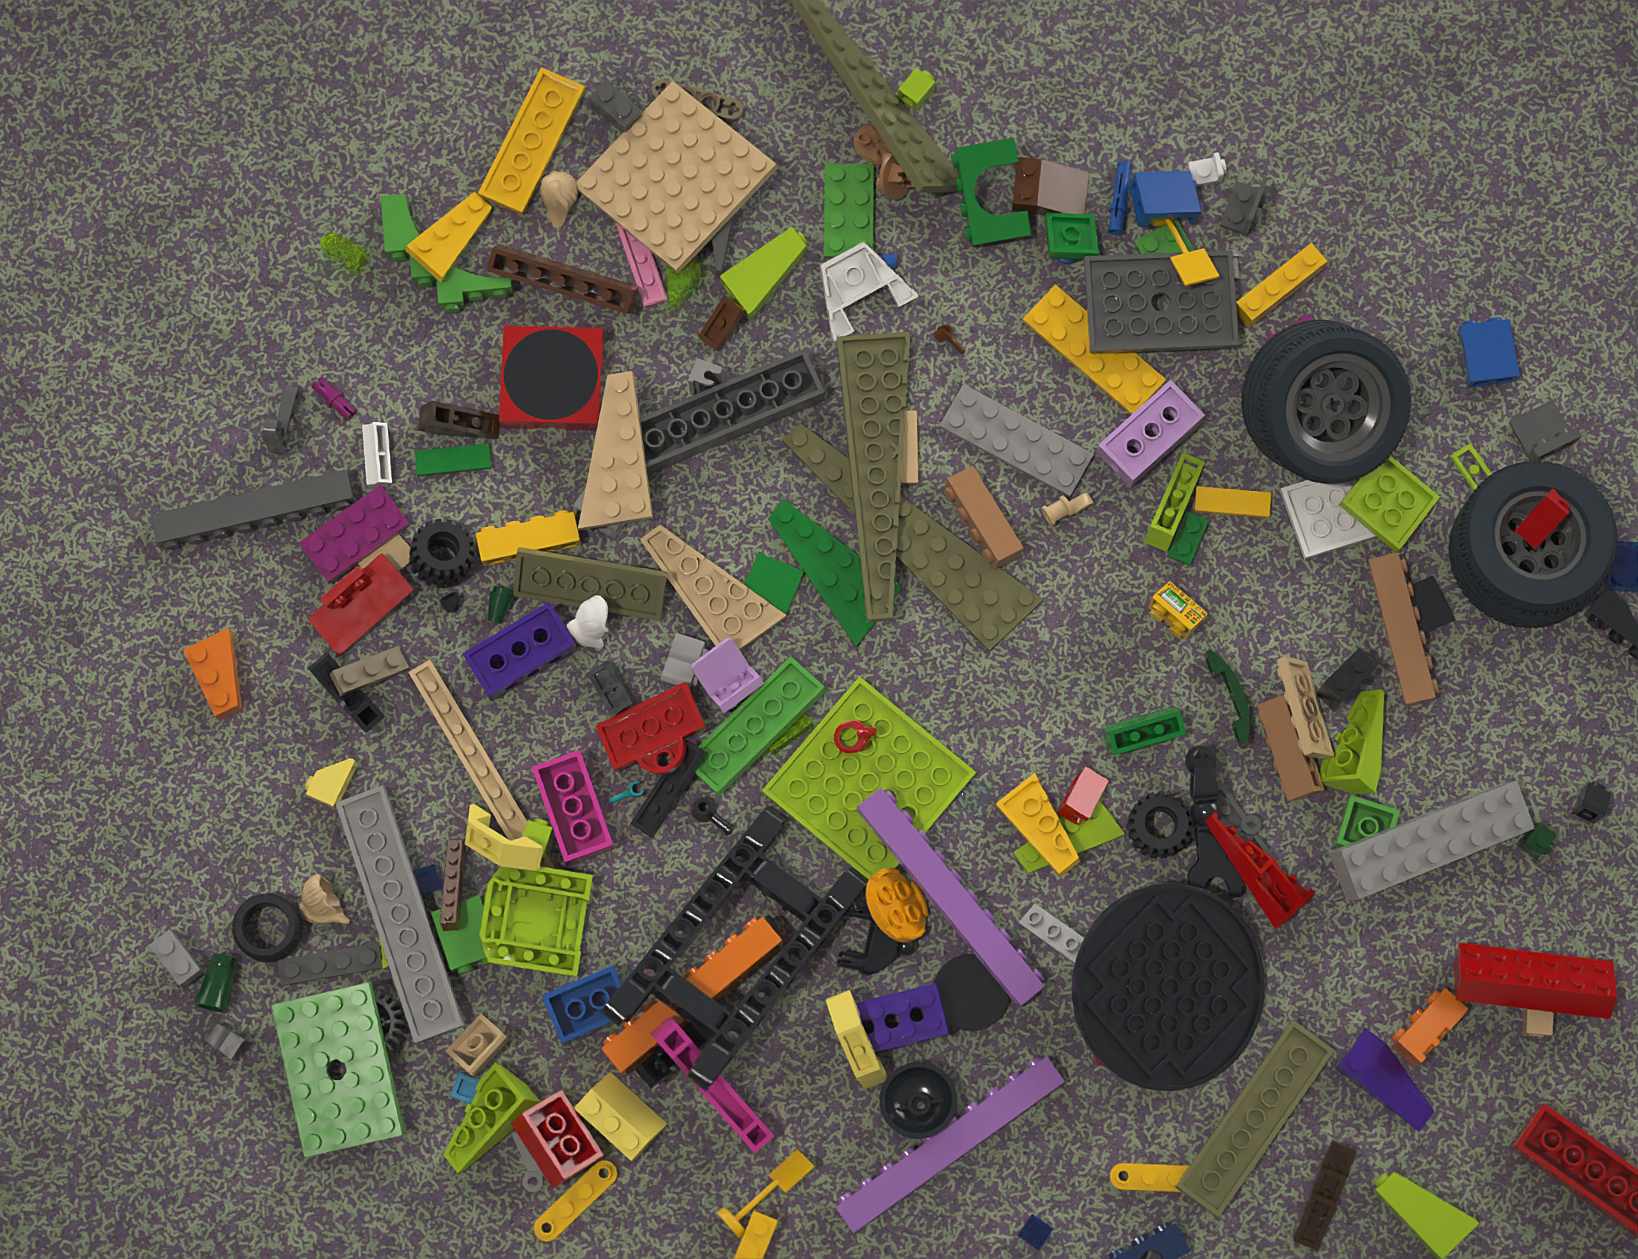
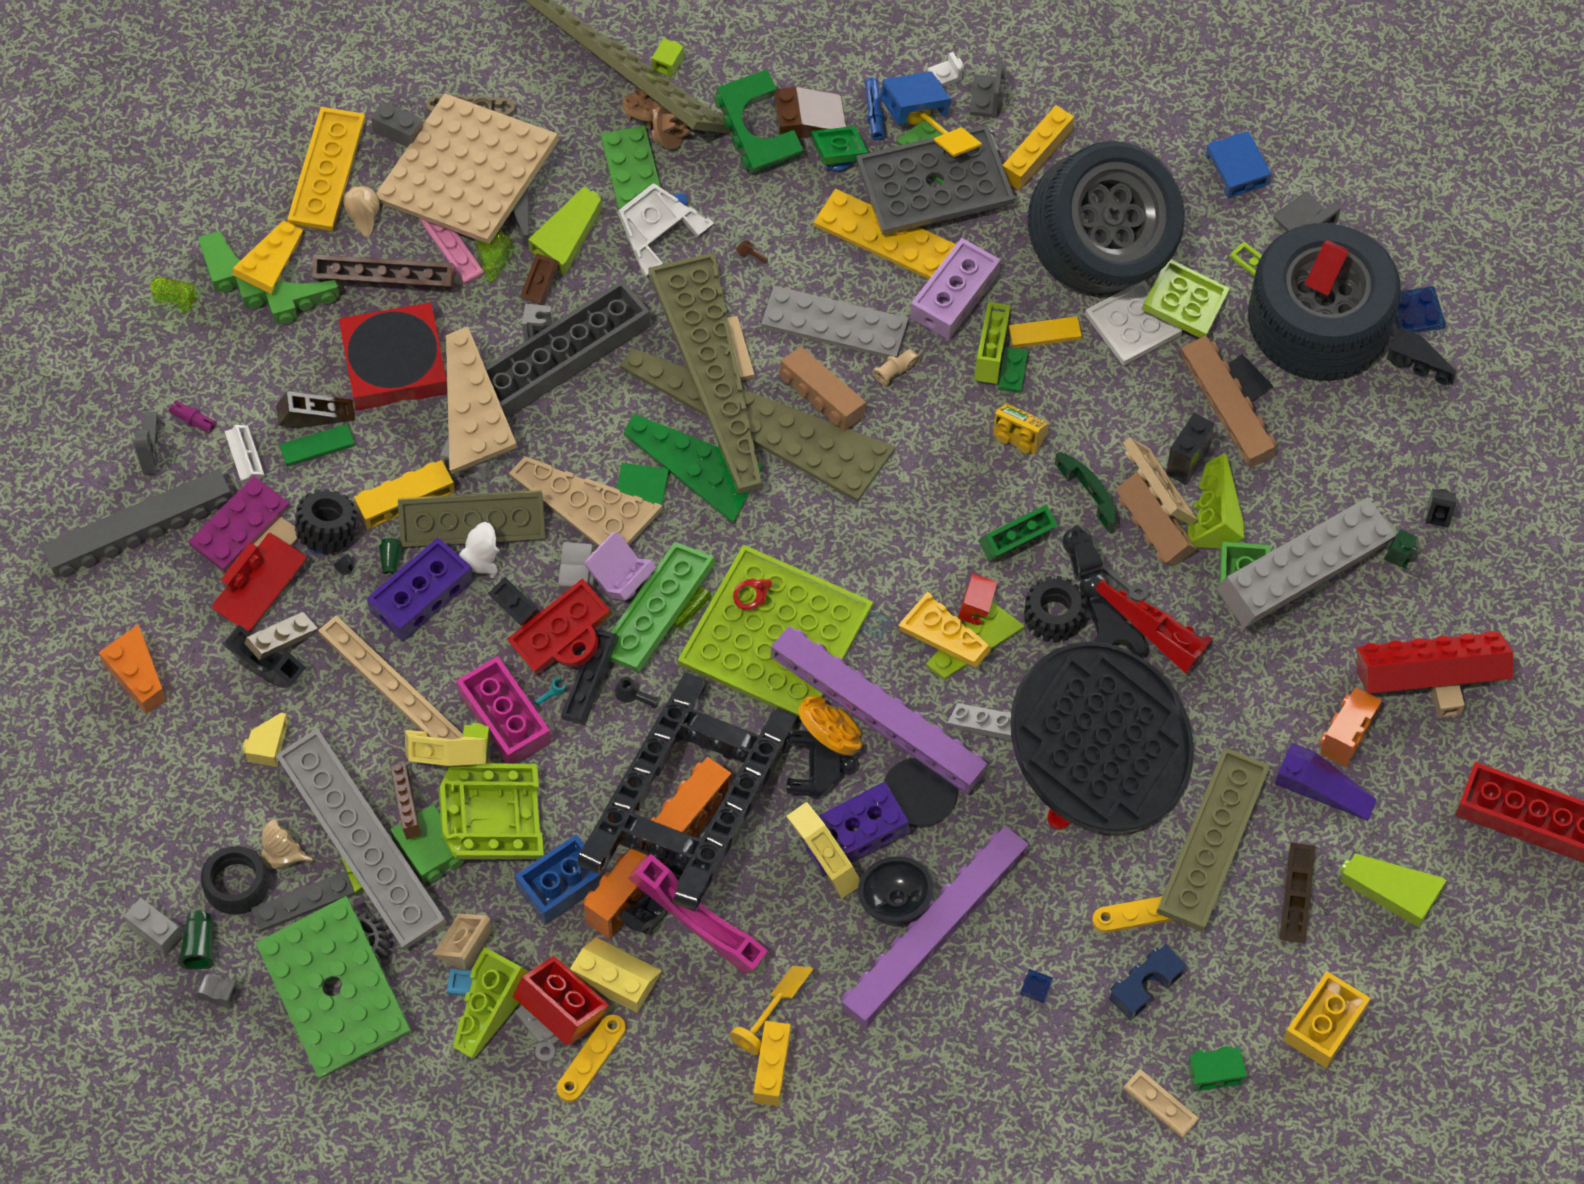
camera: 15 degrees left, 15 degrees down
(427, 880) = (381, 805): clear blue plate -> none

